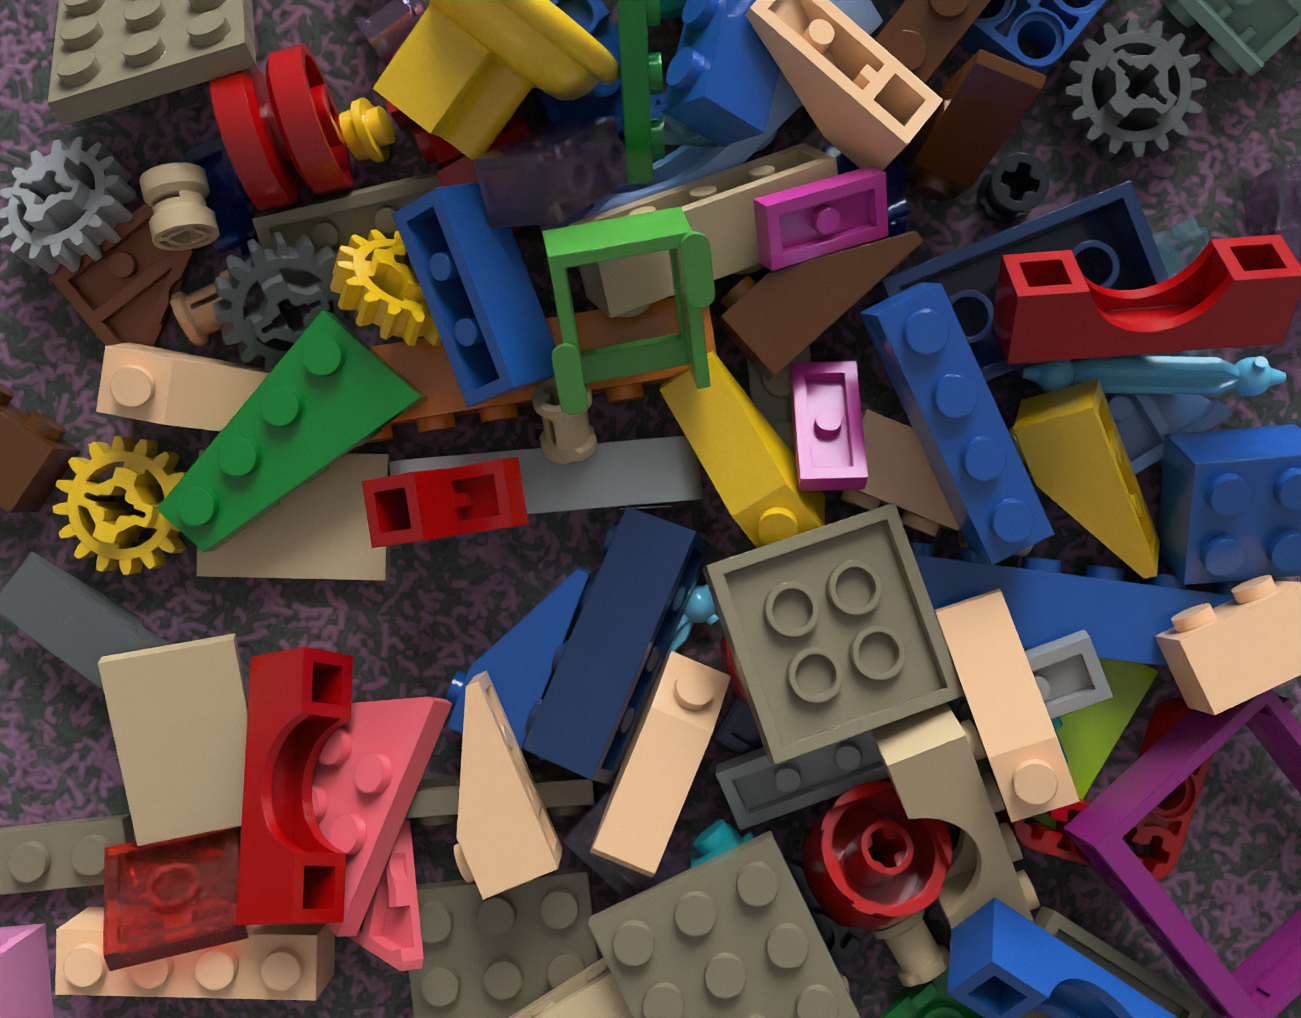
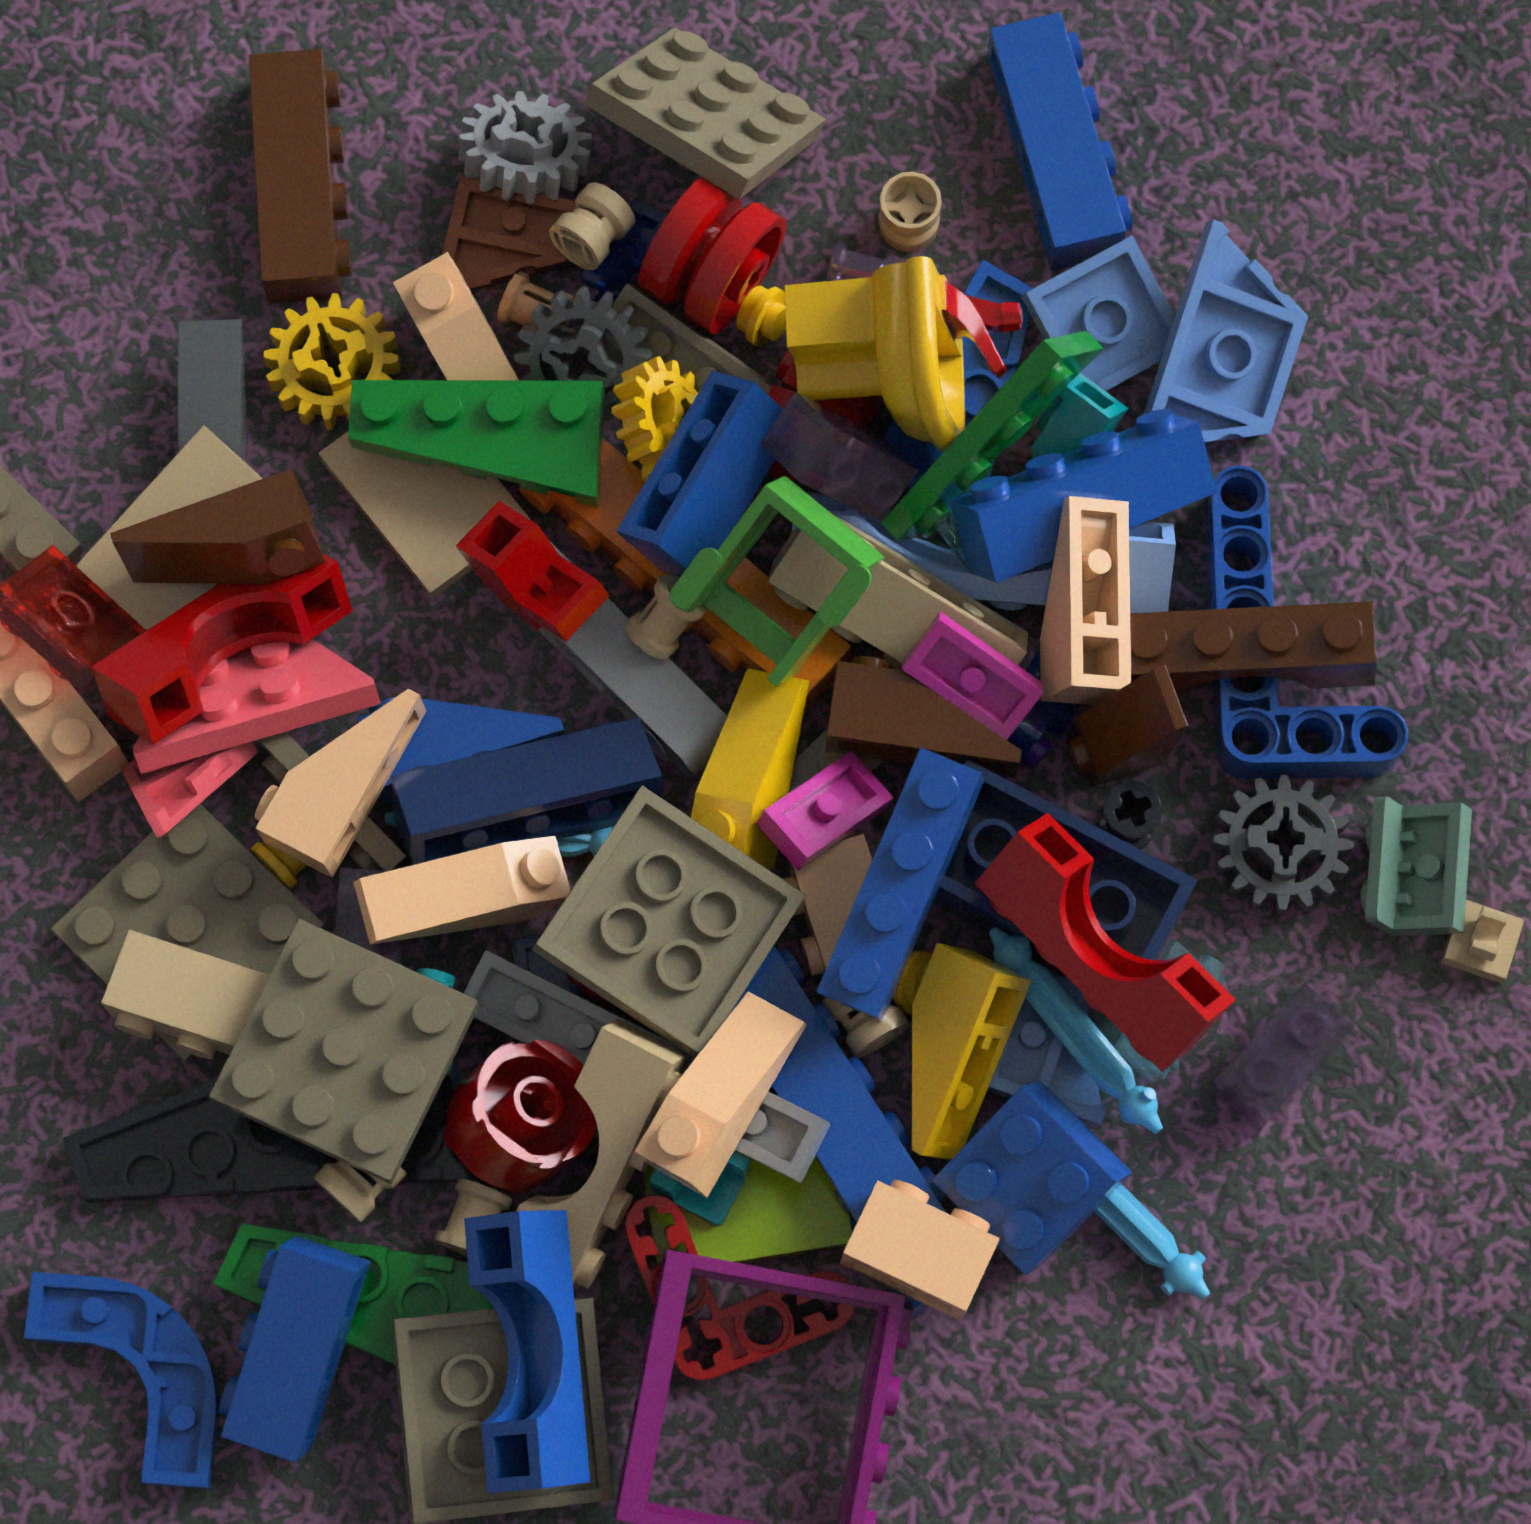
camera: 50 degrees right, 15 degrees down
(217, 712) = (227, 539): none -> reddish brown slope

